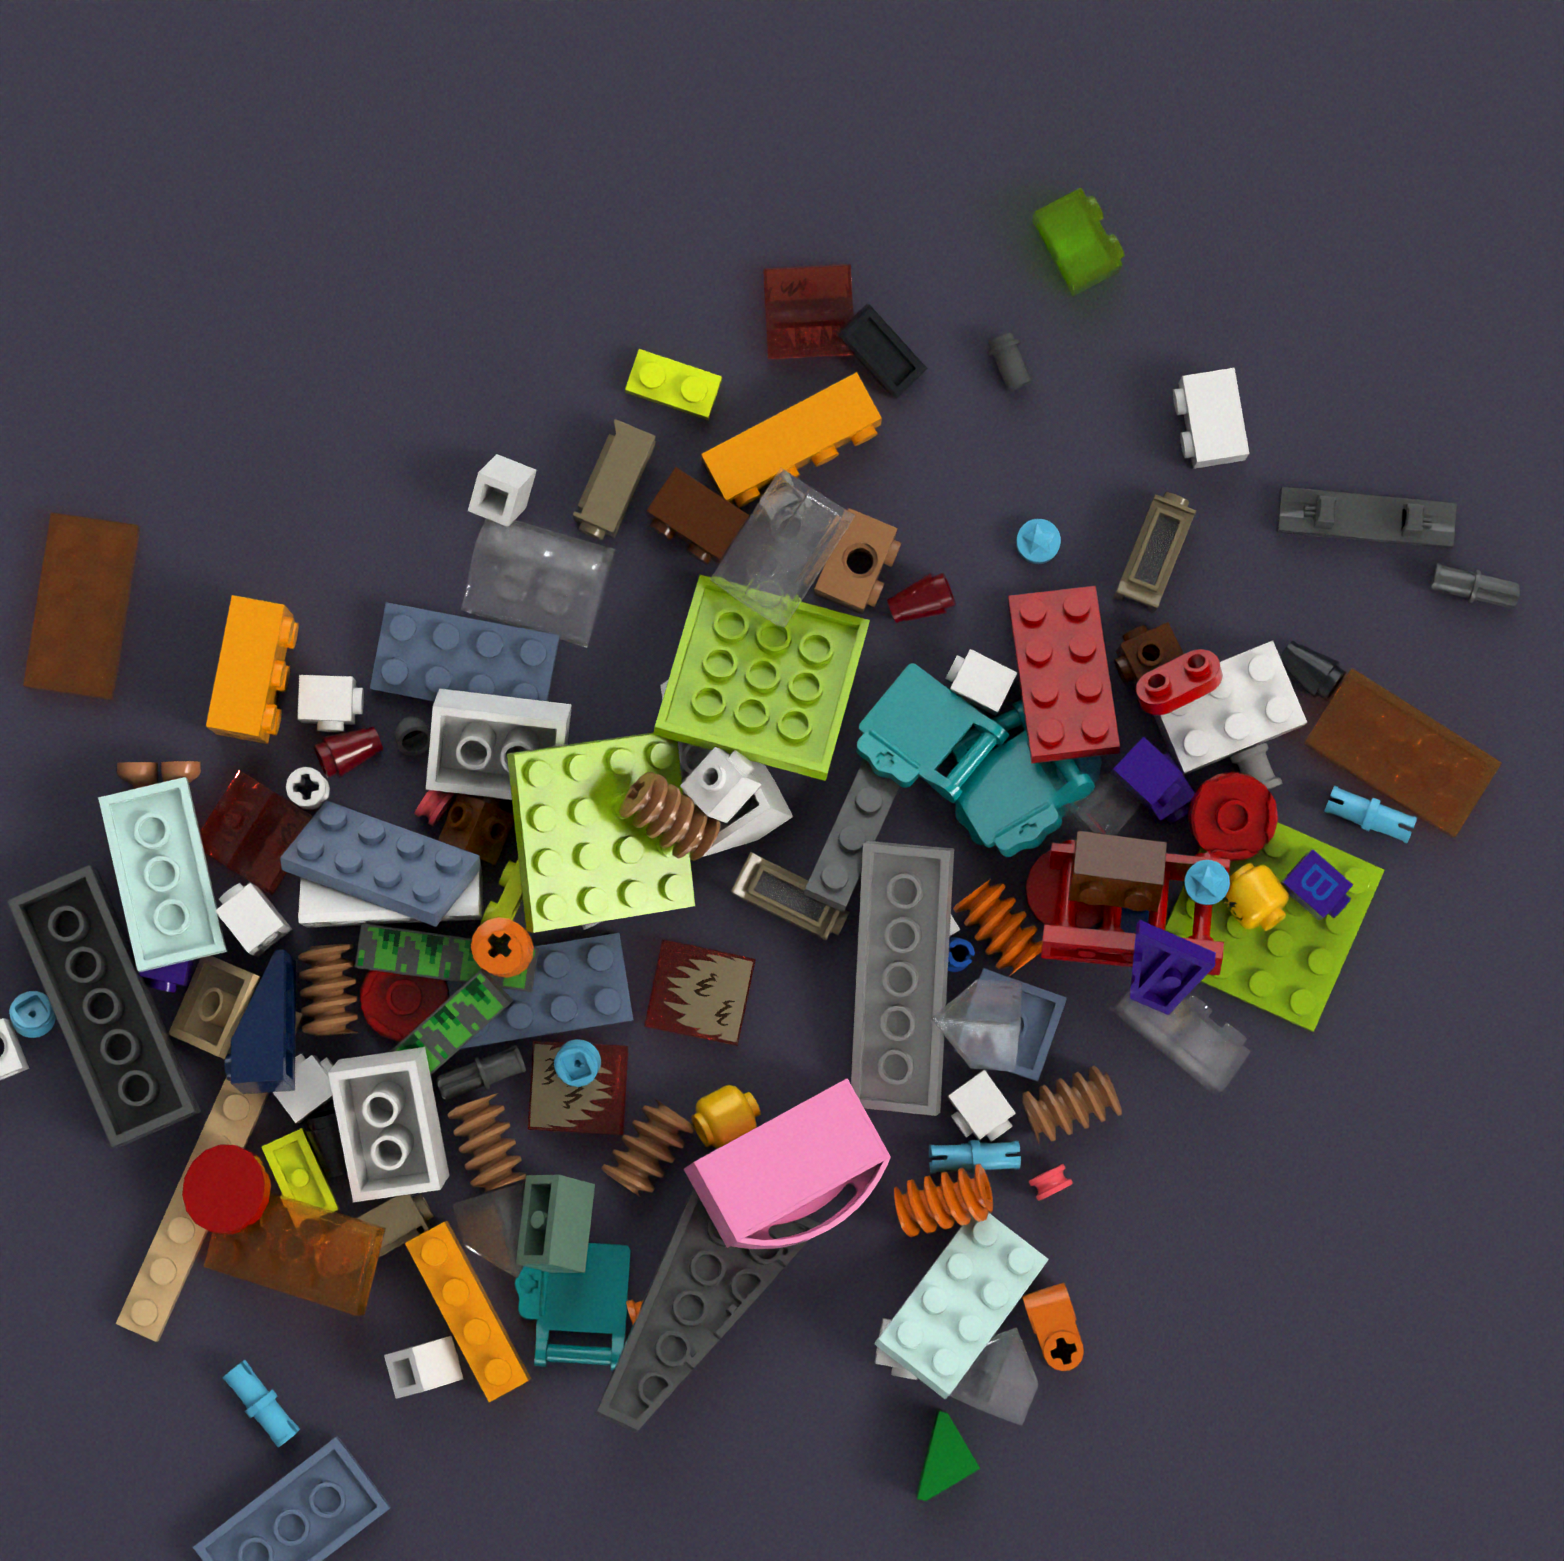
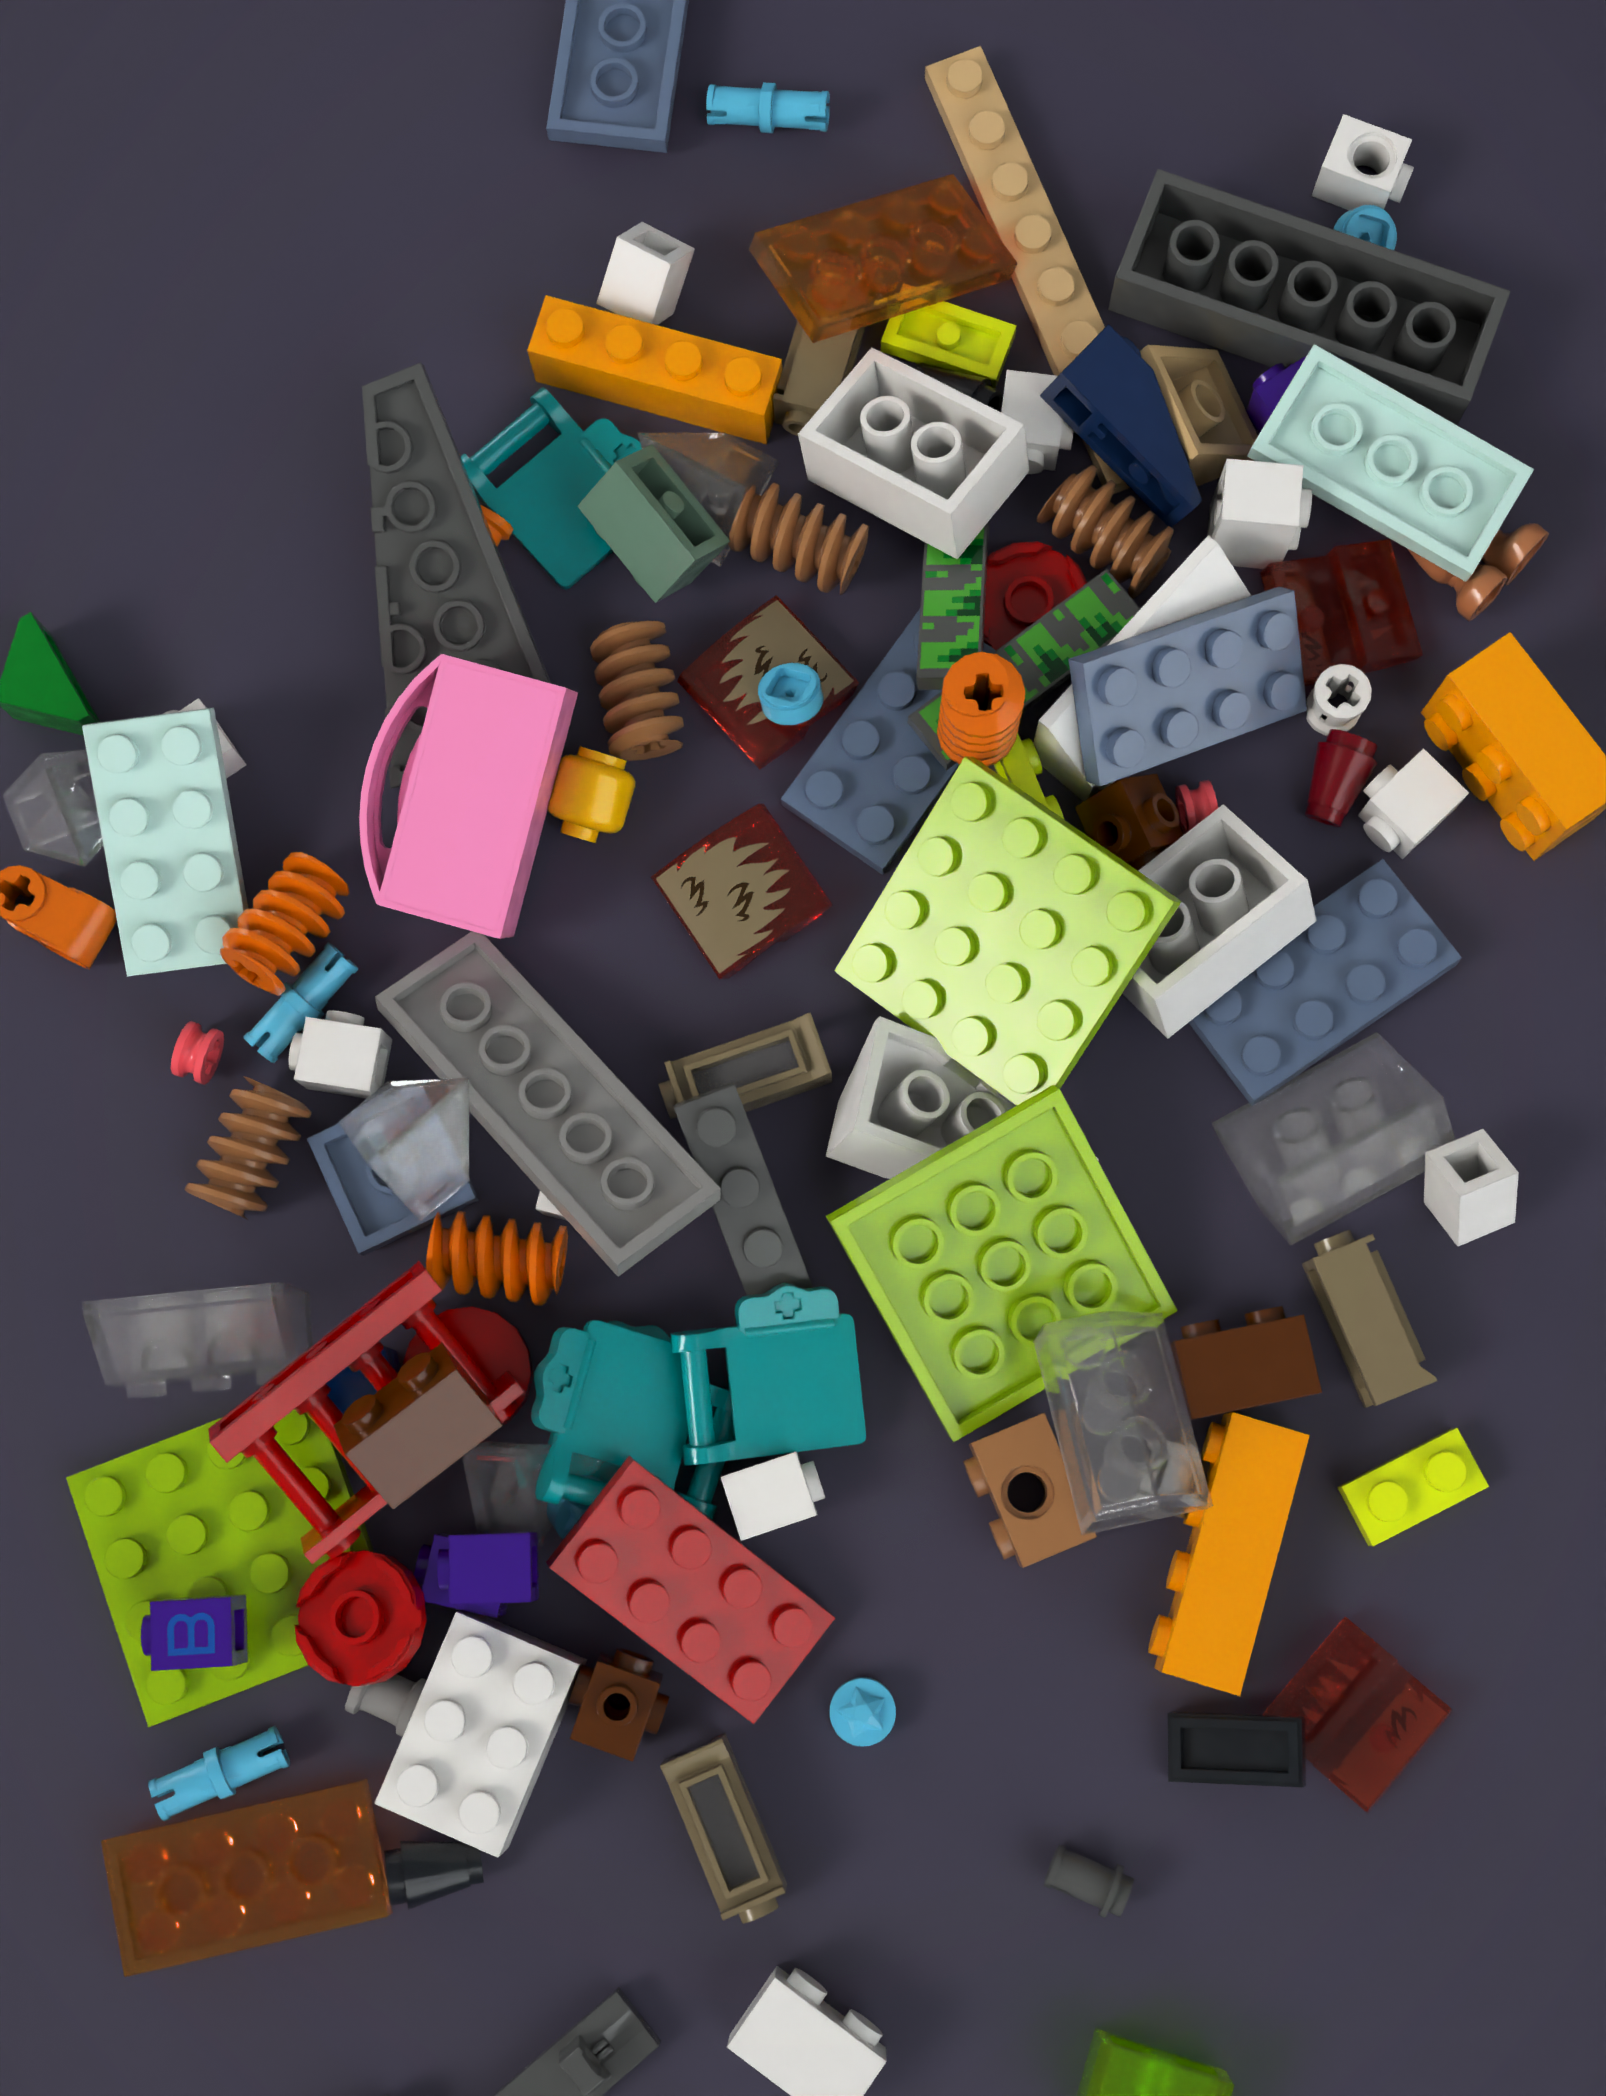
camera: 145 degrees right, 5 degrees down
(226, 1189) = (1006, 243): red tile -> none
(412, 736) = (1296, 849): dark grey hinge -> none
(481, 1073) = (876, 603): dark grey axle -> none
(671, 815) = (948, 1018): medium nougat piece -> none
(721, 784) = (929, 1101): white brick -> none
(922, 599) = (921, 1522): dark red cone -> none
(967, 952) = (503, 1178): blue pin -> none
(1166, 967) = (259, 1370): dark purple wing -> none
(1182, 682) = (551, 1706): red plate -> none
(1207, 882) = (311, 1512): medium azure tile -> none
(1256, 897) = (251, 1554): yellow head -> none

